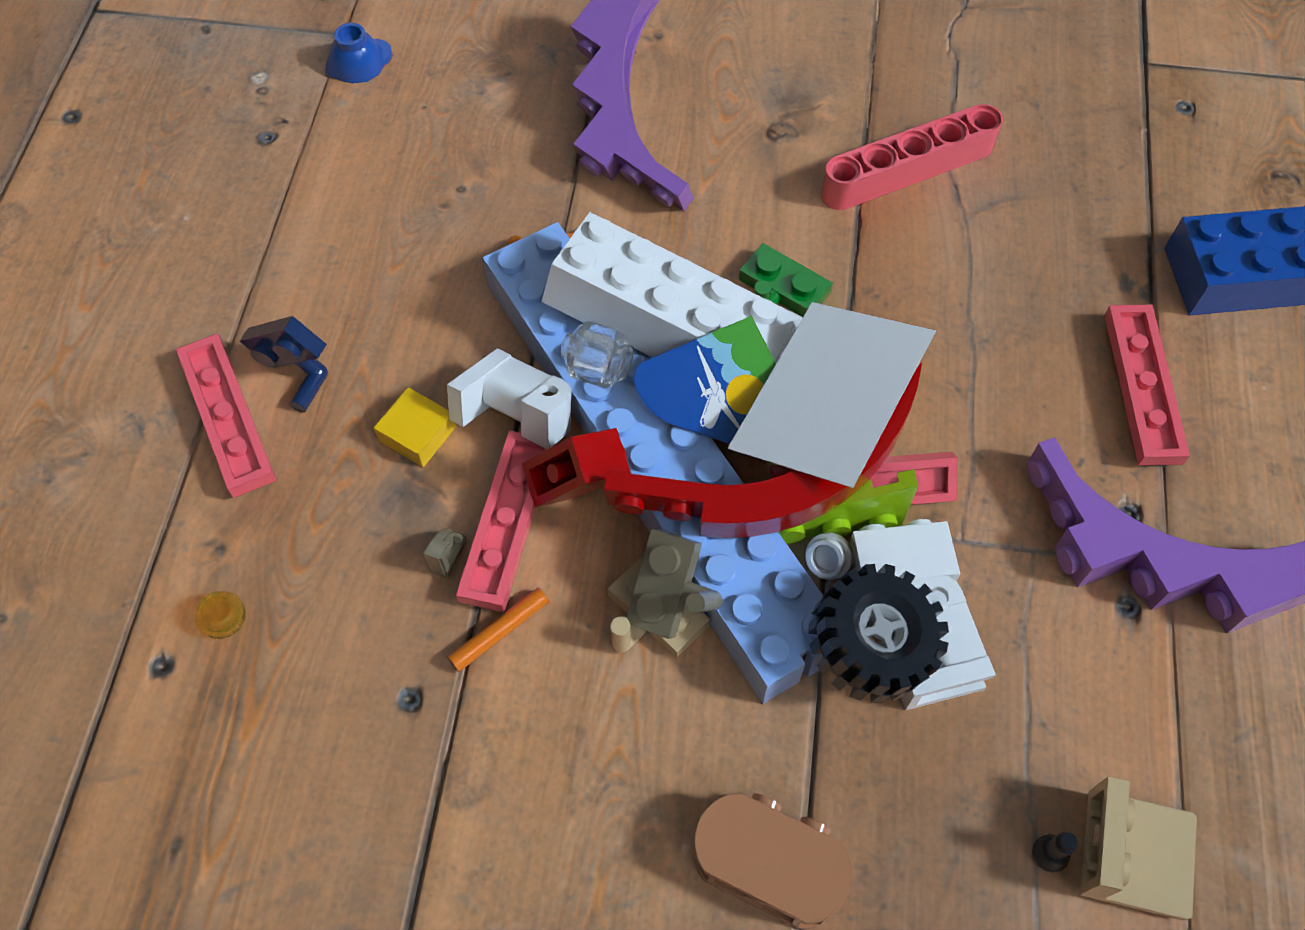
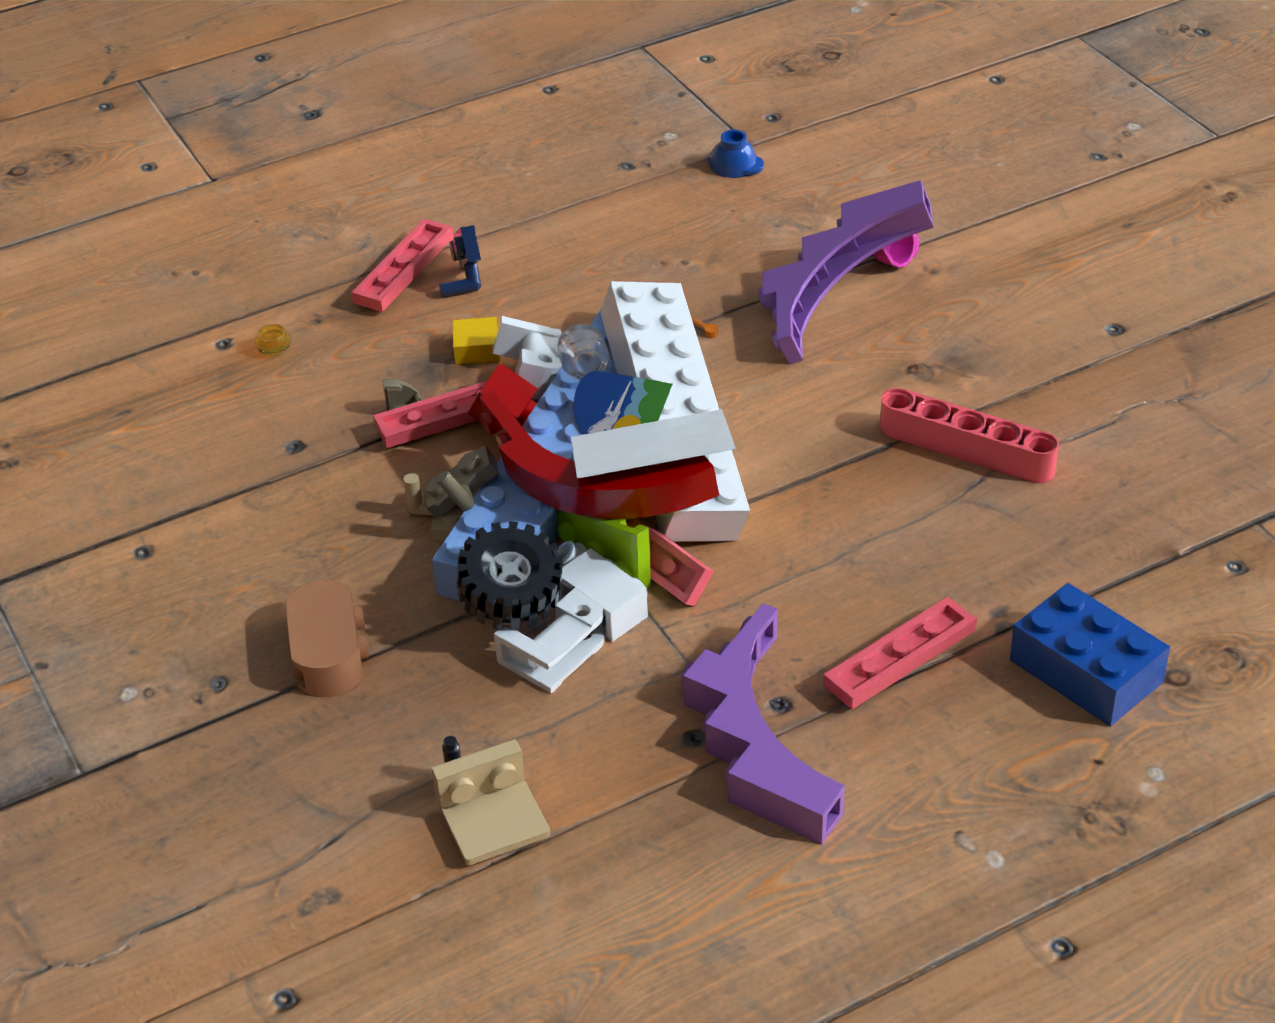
camera: 55 degrees right, 20 degrees down
(498, 629) = (373, 452): orange piece -> none
(784, 280) = (778, 434): green plate -> none

